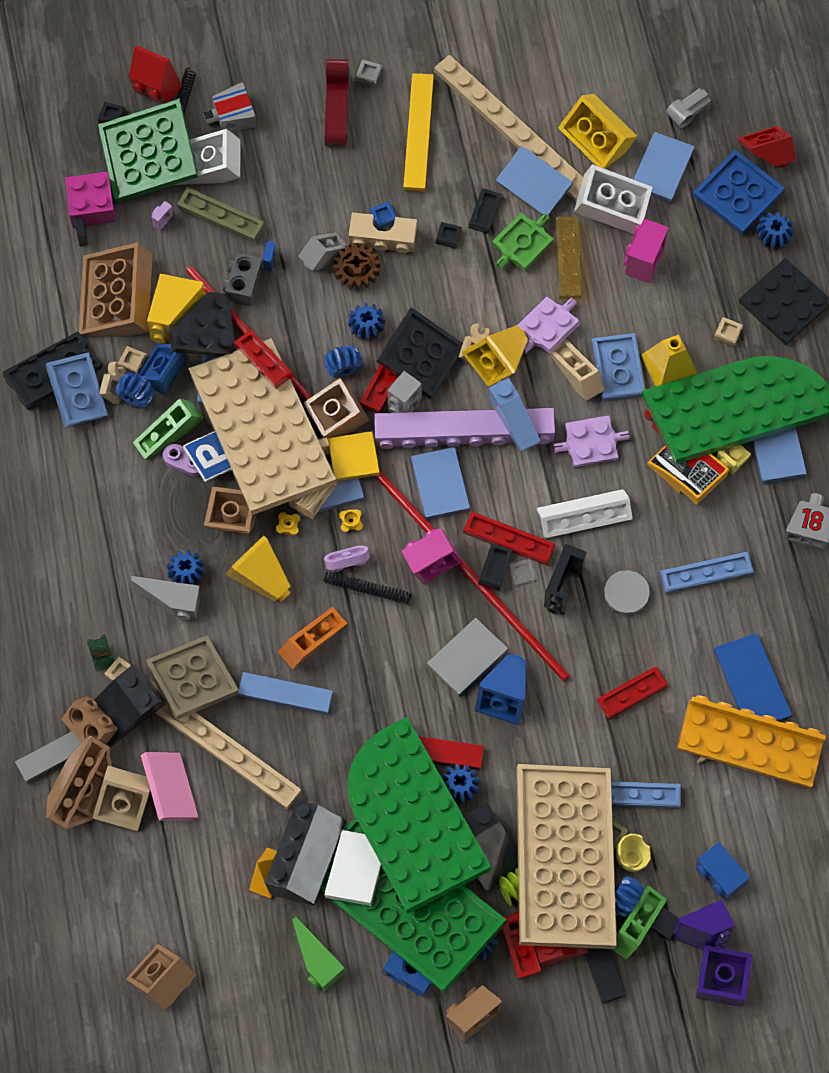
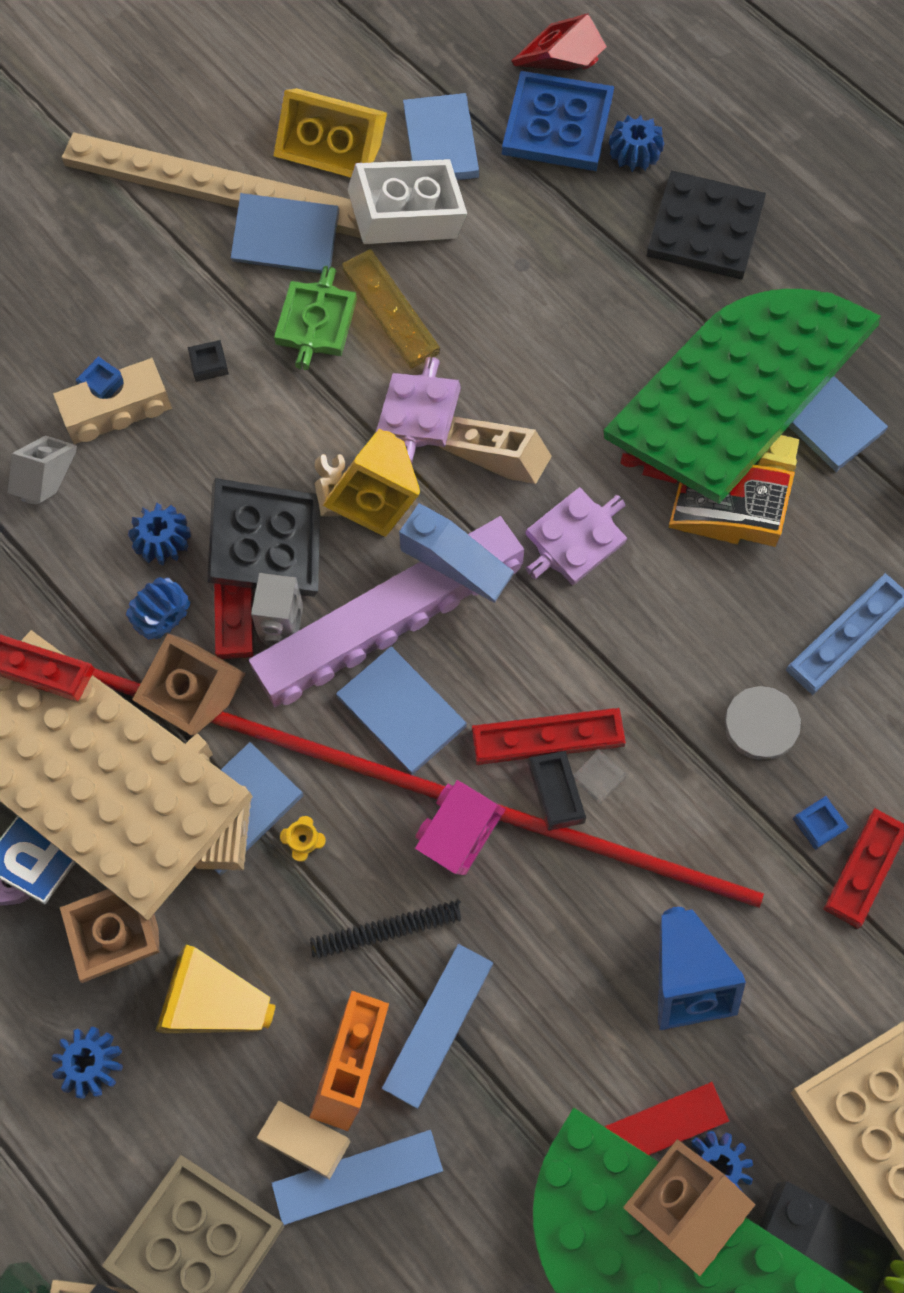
camera: 30 degrees left, 0 degrees up
(174, 597) = (97, 1121): light grey slope -> none
(269, 661) = (304, 1140): none -> tan tile
(291, 529) = (206, 907): yellow plate -> none
(344, 558) = (330, 900): lavender plate -> none
(352, 257) = (101, 465): reddish brown gear -> none
(353, 456) = (252, 739): yellow tile -> none
(365, 646) = (437, 1026): none -> medium blue tile
(418, 132) = (88, 250): yellow tile -> none
(430, 780) = (689, 1206): none -> medium nougat slope
(467, 657) = (599, 952): light grey tile -> none
(485, 211) = (239, 305): black tile -> none
(570, 560) = (661, 722): black panel -> none
(585, 513) = (632, 640): white panel -> none
(619, 366) = (546, 405): medium blue tile -> none
(623, 658) = (820, 822): none -> blue tile
(645, 250) = (491, 244): dark pink brick -> none
(668, 361) = (614, 371): yellow slope -> none
(684, 111) = (425, 57): light grey piece -> none
(728, 331) = (660, 298): tan tile -> none

